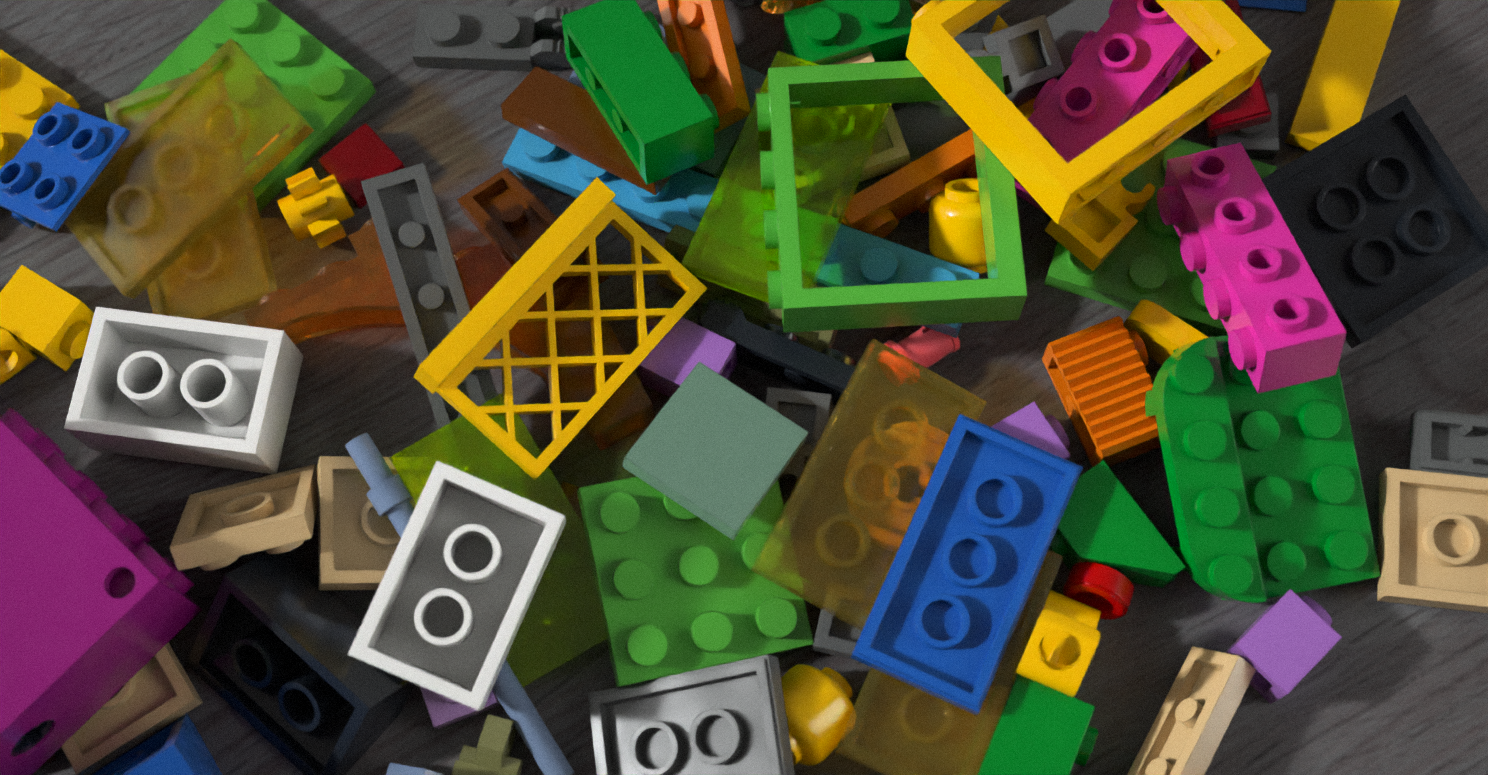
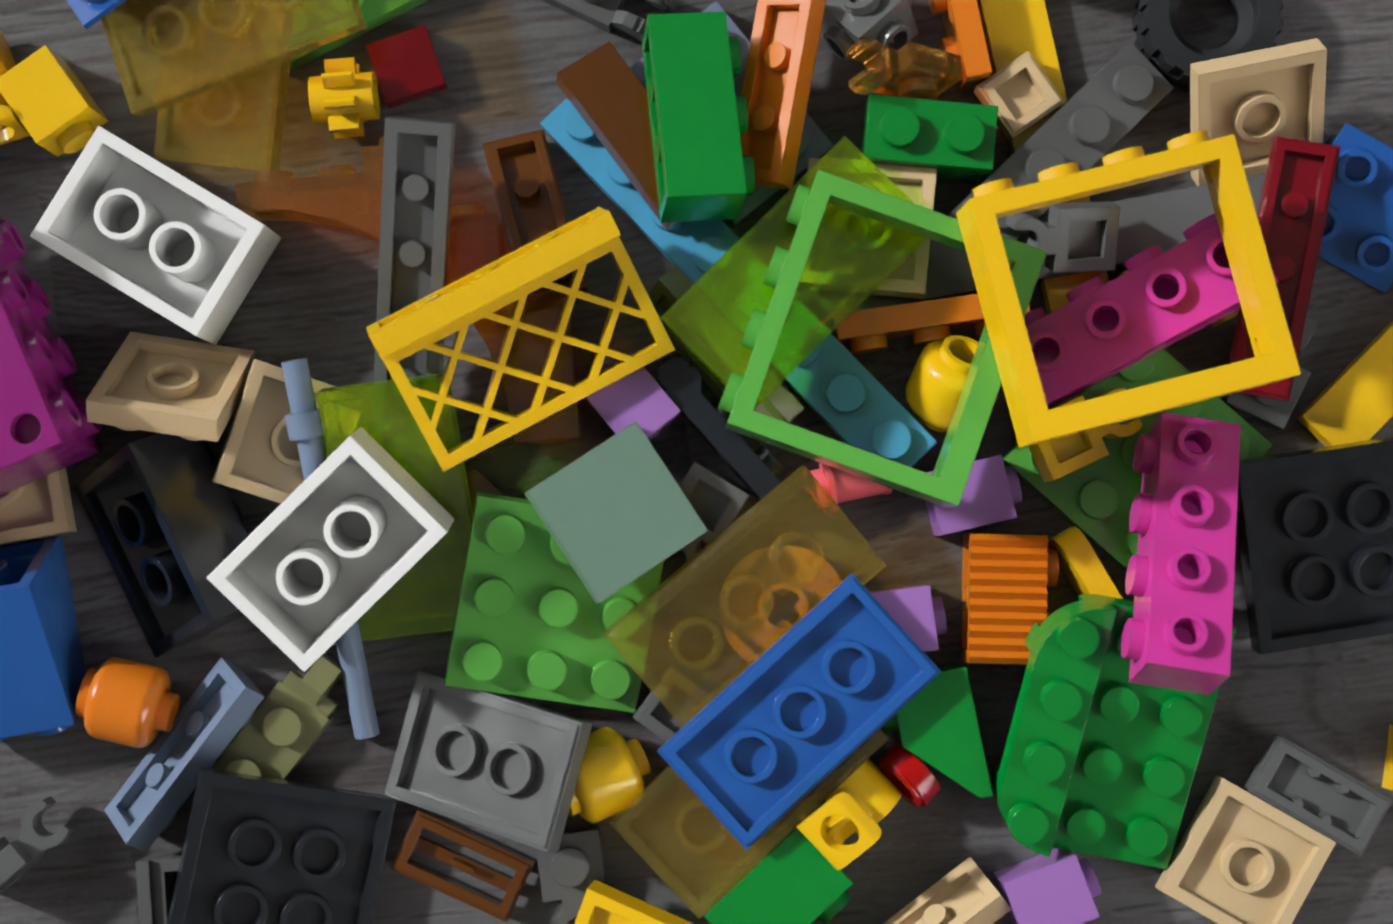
camera: 20 degrees right, 15 degrees up
(1047, 315) = (985, 500): none -> medium lavender brick

